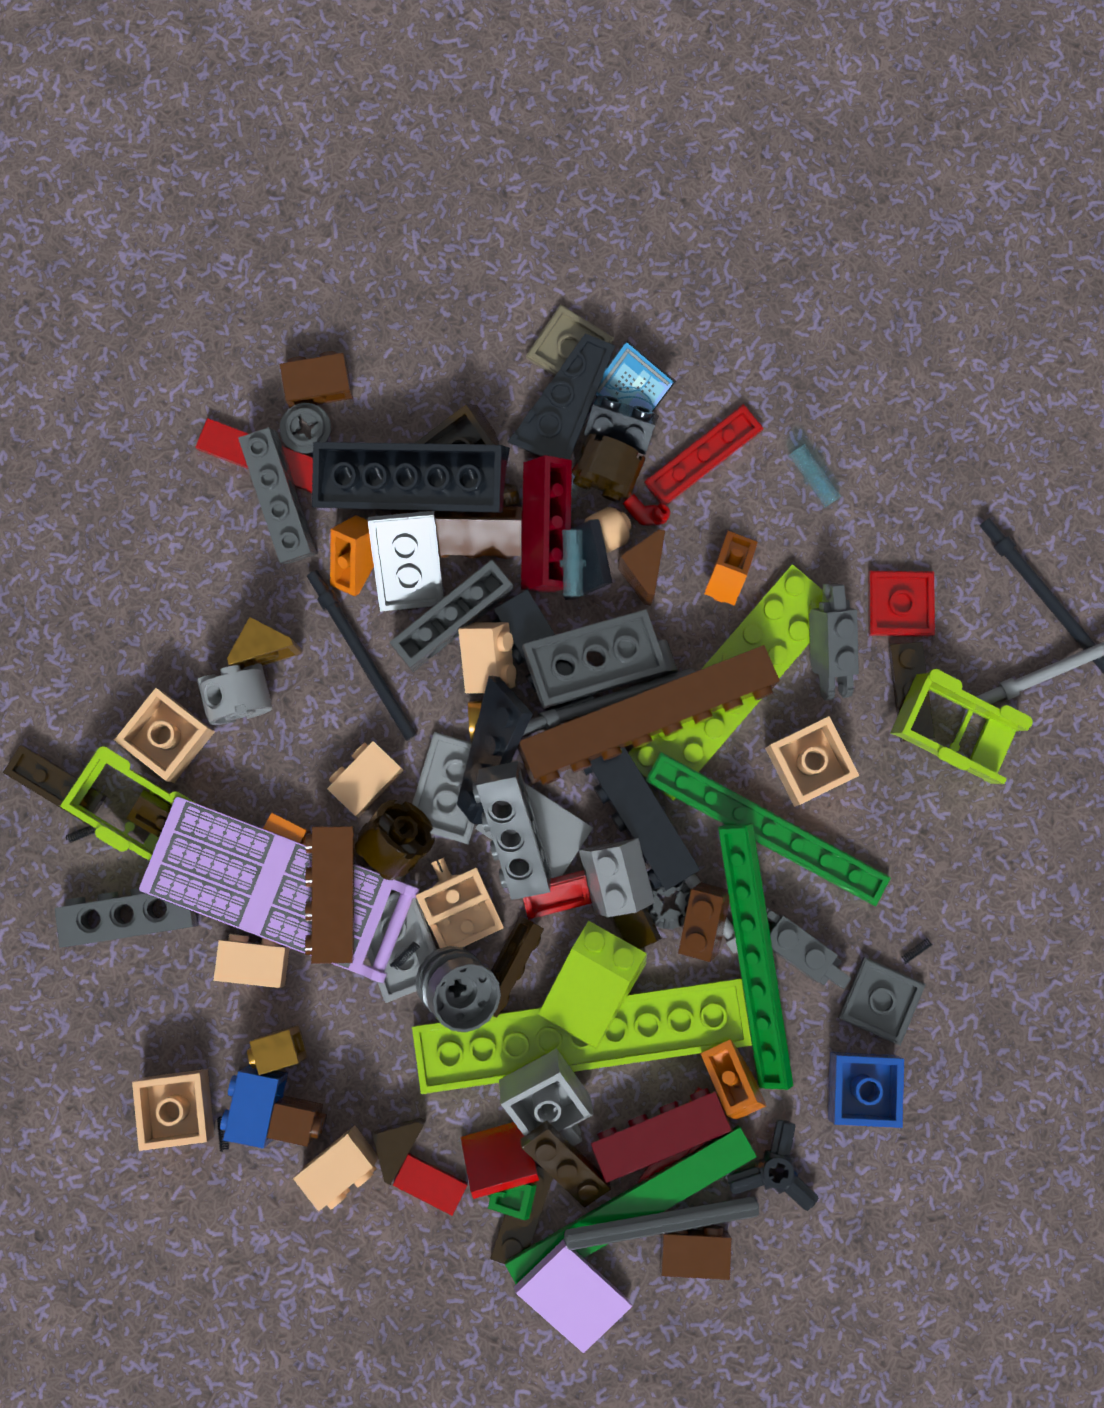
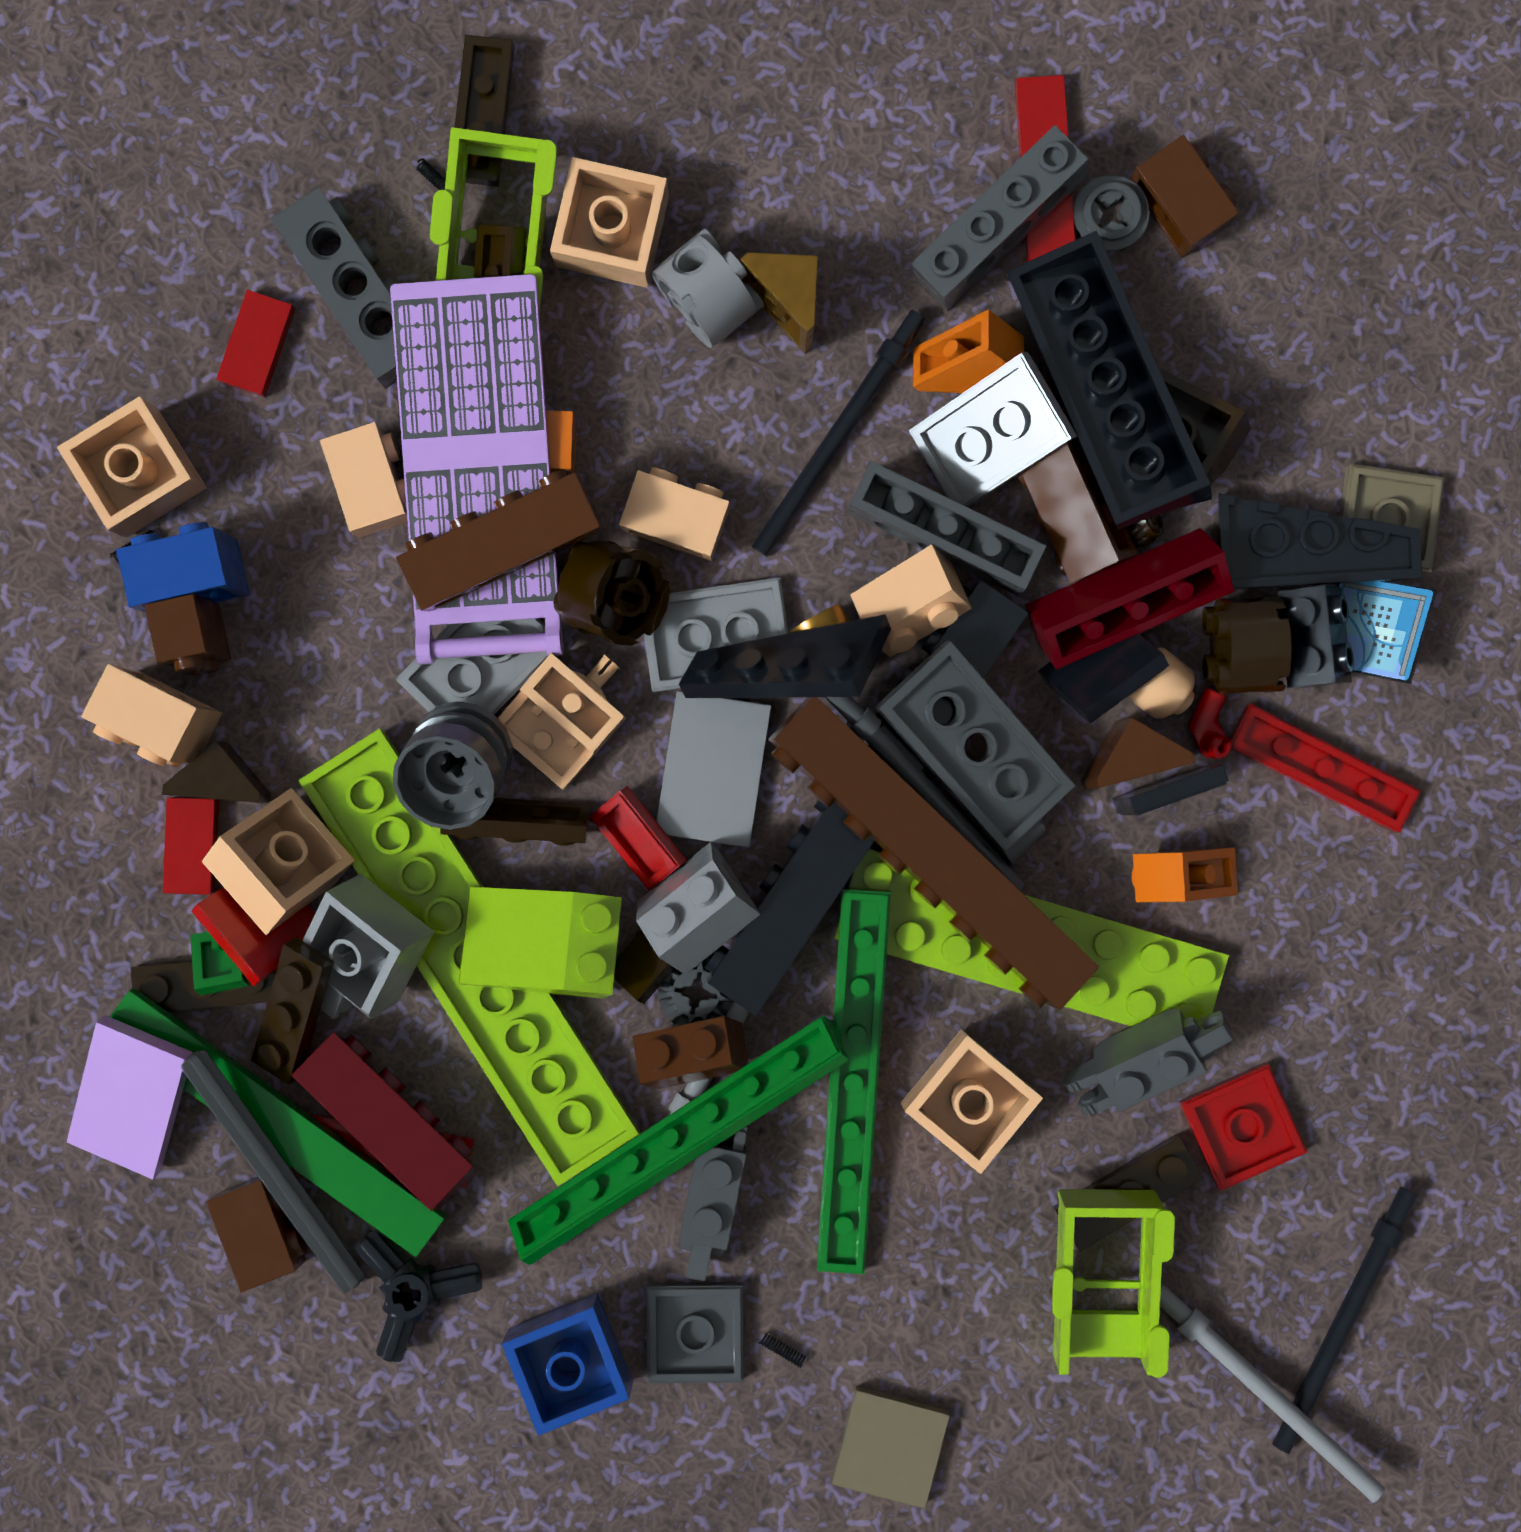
camera: 65 degrees right, 5 degrees up
(131, 995) = (256, 343): none -> red tile
(277, 1050) = (267, 566): pearl gold brick -> none
(401, 957) = (468, 672): black leg -> none
(466, 1129) = (277, 860): none -> light nougat brick
(507, 784) = (748, 705): brick -> none
(572, 563) = (1092, 657): clear light blue pin -> none
(675, 553) = (1170, 790): none -> black tile
(733, 1080) = (500, 1182): orange slope -> none
(814, 475) = (1365, 931): clear light blue pin -> none
(1006, 911) = (890, 1447): none -> dark tan tile

